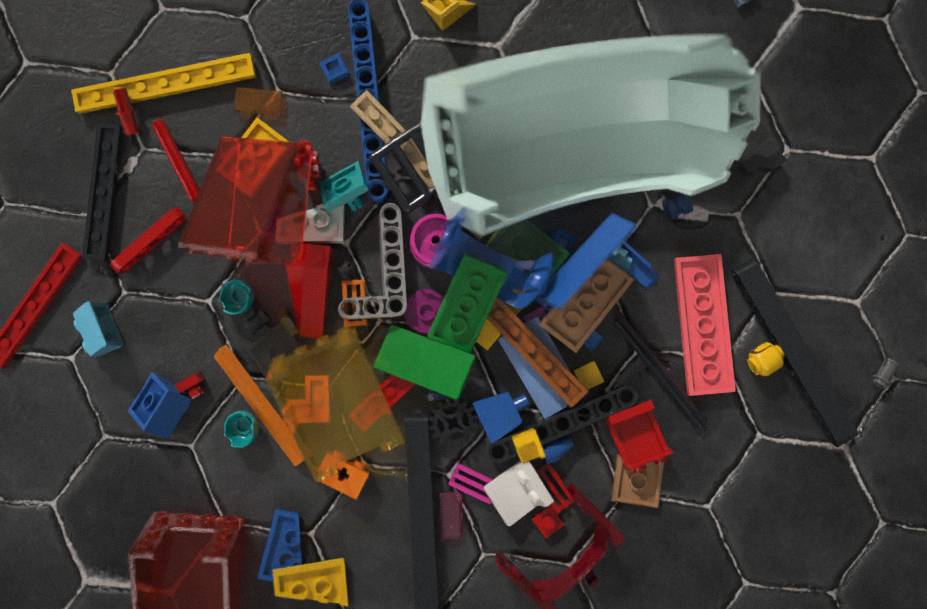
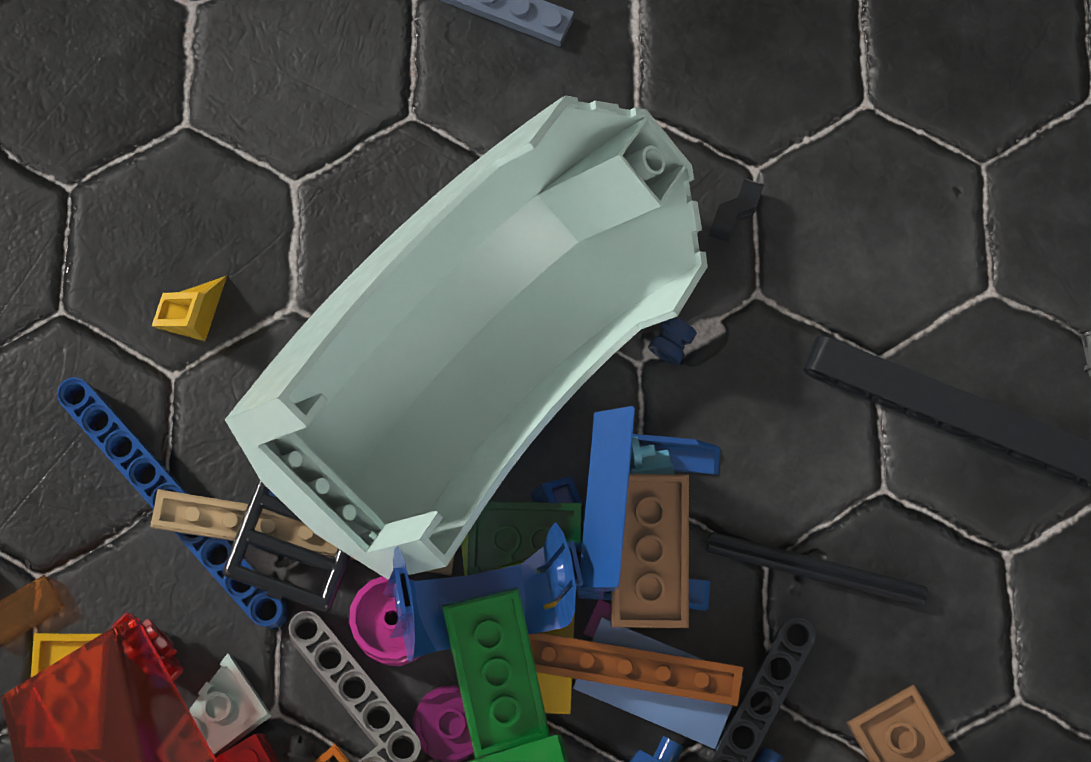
camera: 30 degrees left, 10 degrees down
(334, 68) = (96, 492): blue tile -> none
(344, 188) = (220, 640): teal tile -> none
(589, 375) = (728, 644): yellow tile -> none
(638, 437) = (854, 678): red panel -> none
(704, 325) = (825, 466): coral plate -> none
(765, 359) = (935, 450): yellow head -> none

